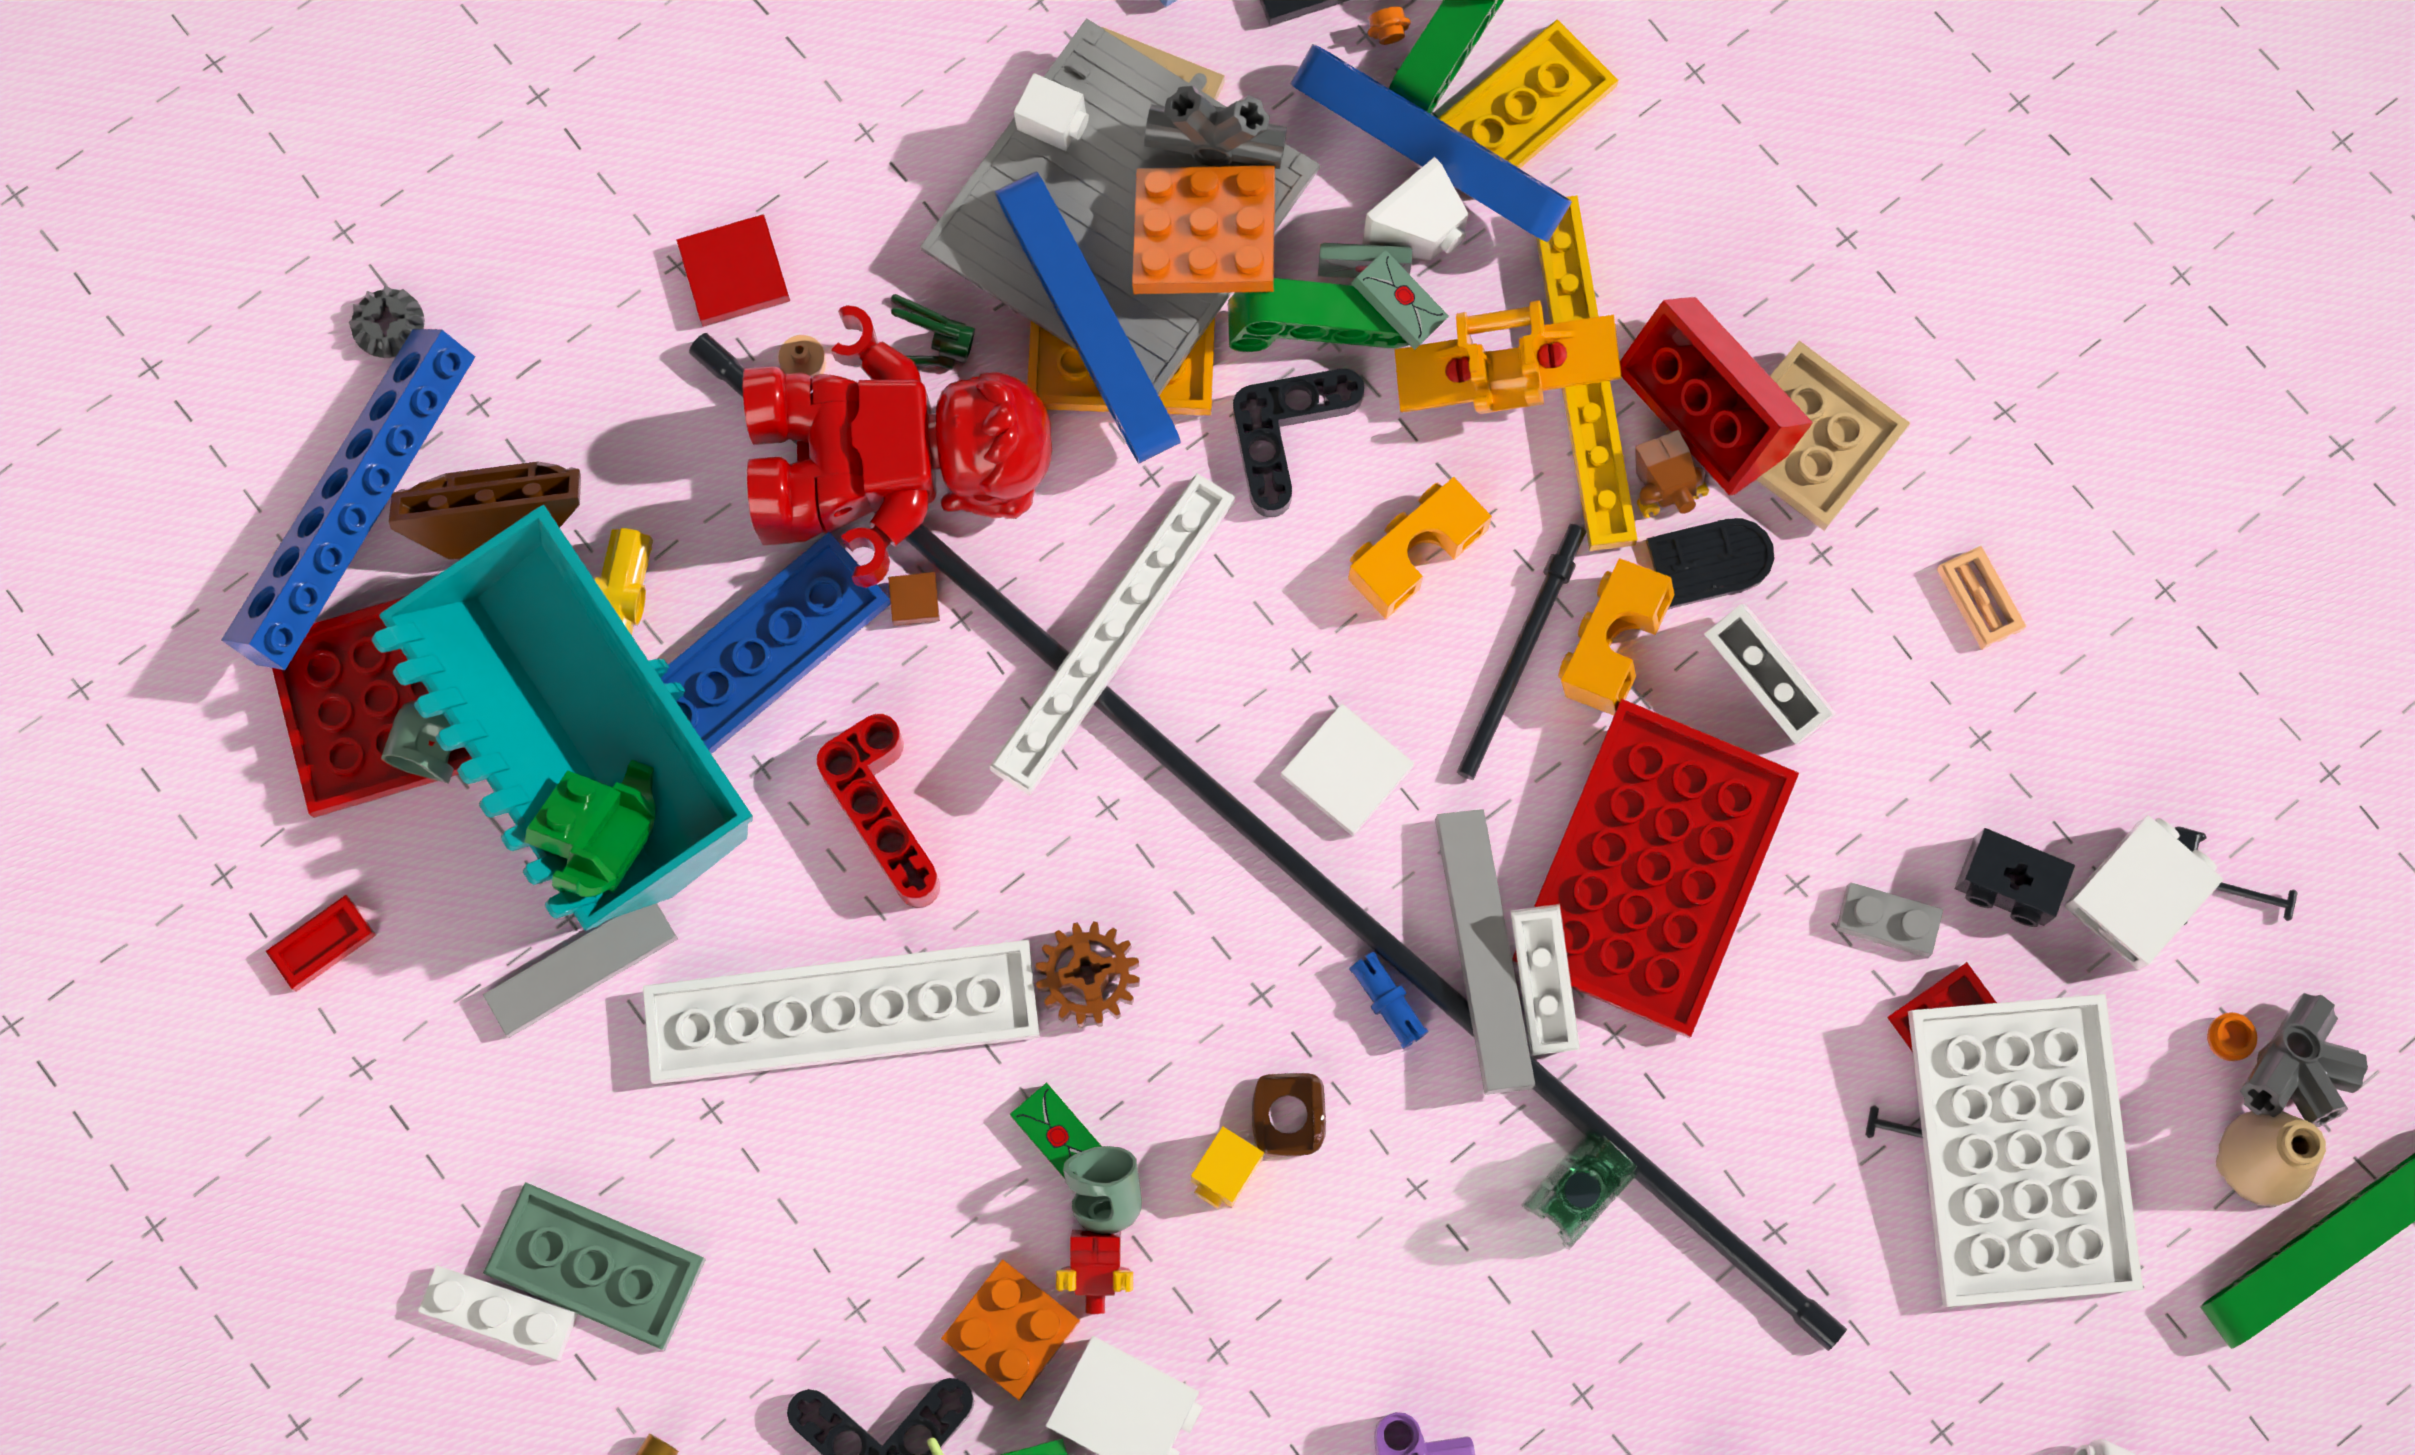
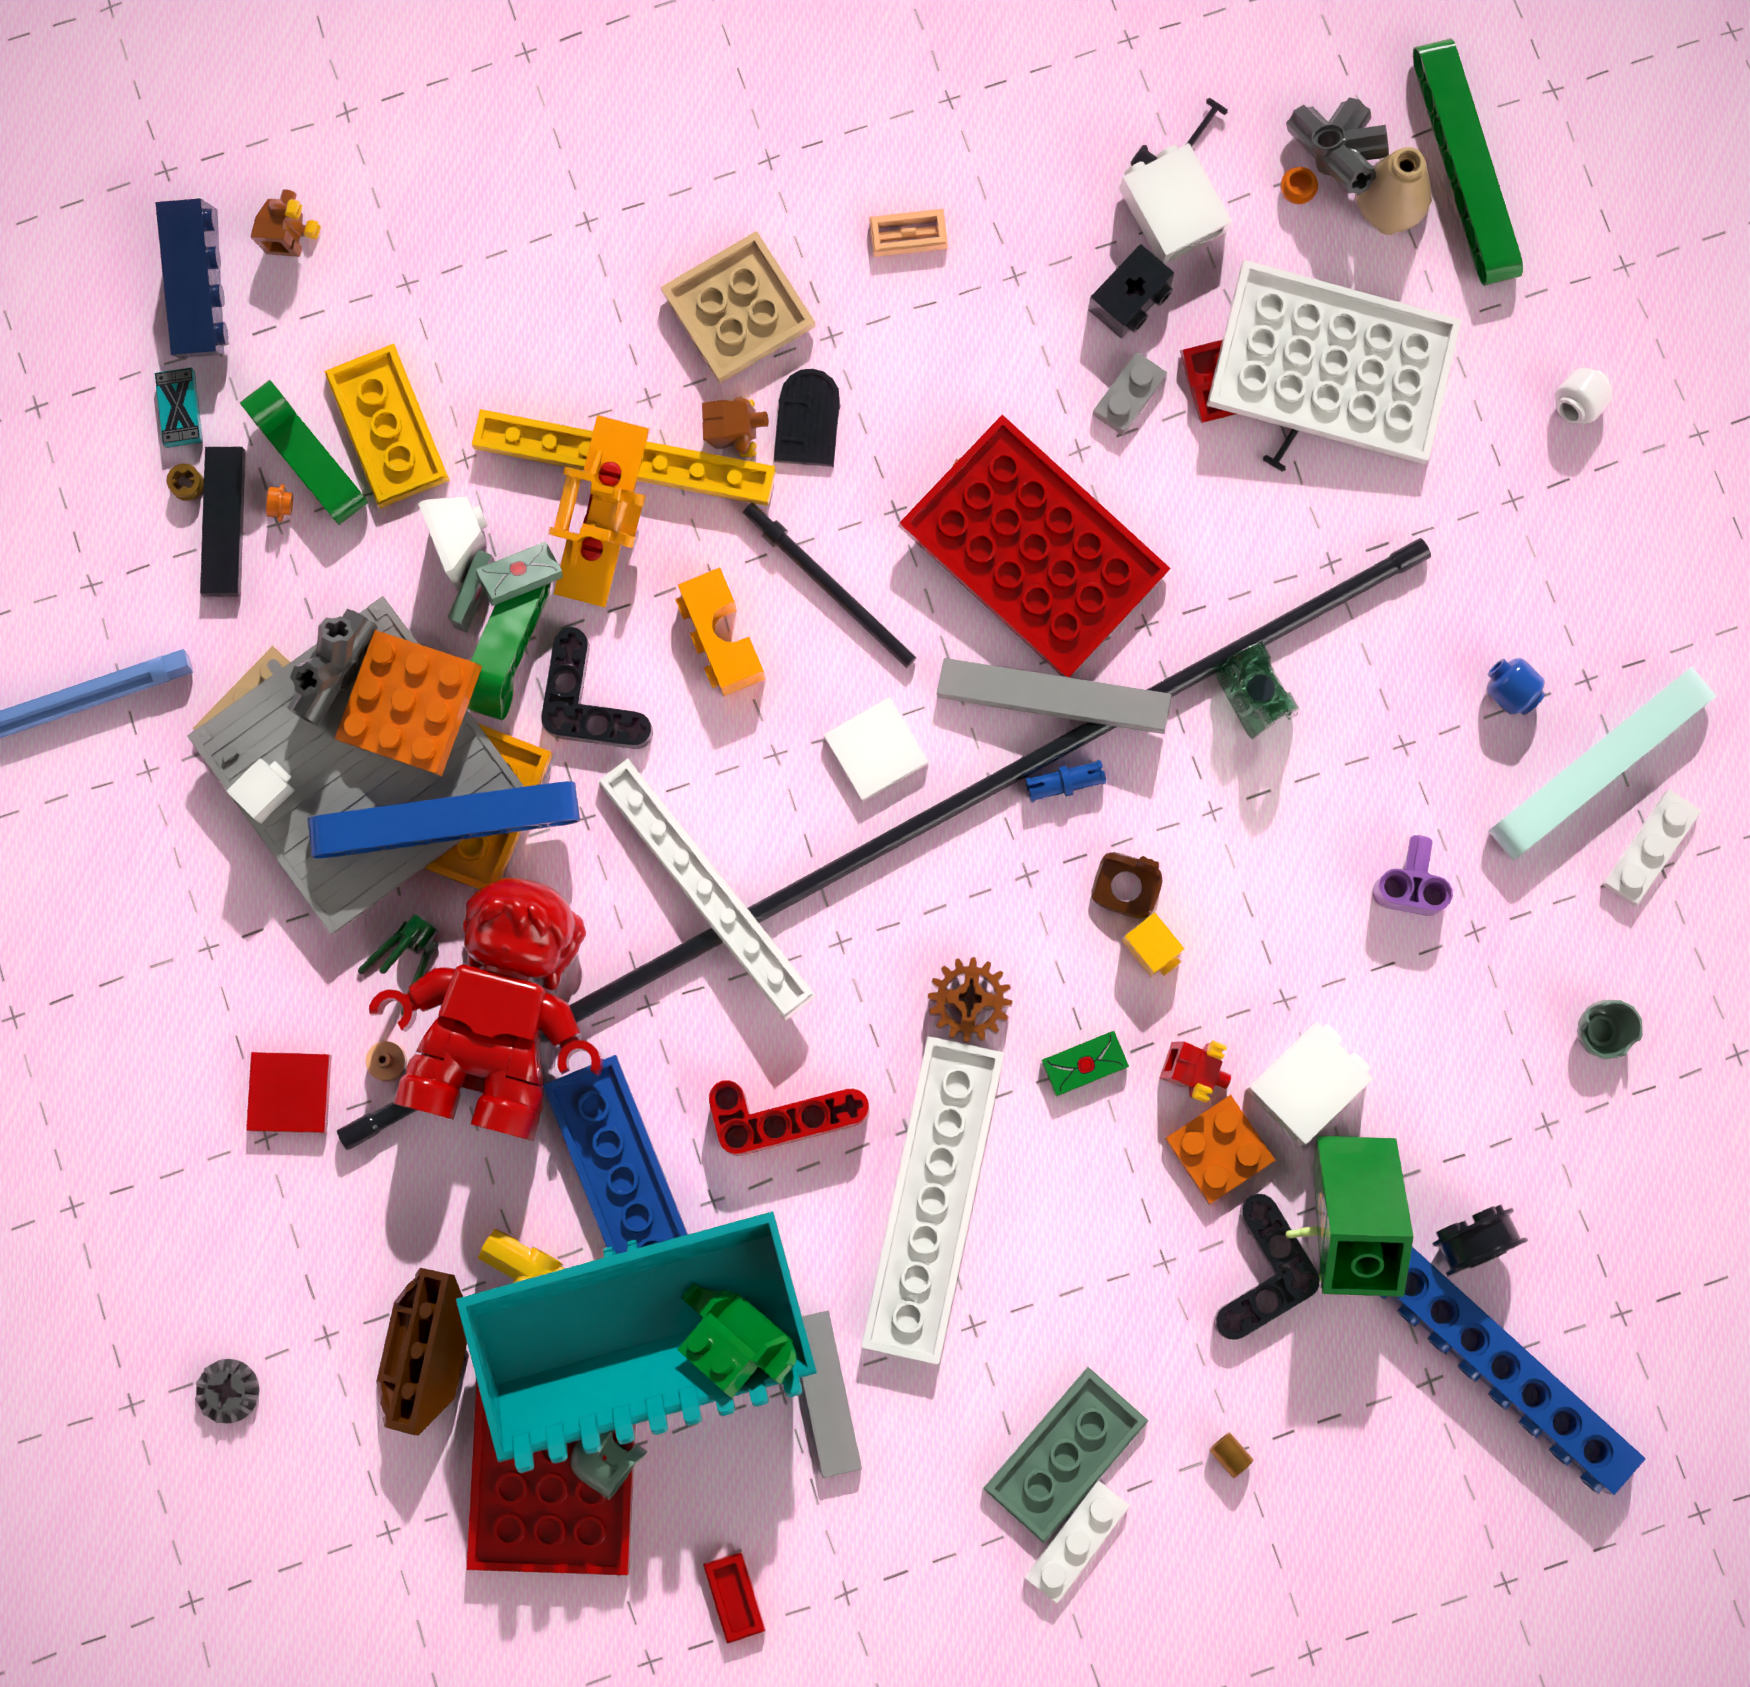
camera: 65 degrees left, 5 degrees up
(348, 499) = (376, 1463): blue brick -> none
(914, 599) = (619, 1036): dark orange tile -> none
(1105, 1189) = (1141, 1041): sand green helmet -> none
(1424, 136) = (394, 505): blue beam -> none
(1545, 979) = (1092, 658): white tile -> none
(1628, 600) = (820, 488): light orange arch -> none
(1712, 393) = (682, 366): red slope -> none
(1770, 673) = (917, 407): white brick -> none

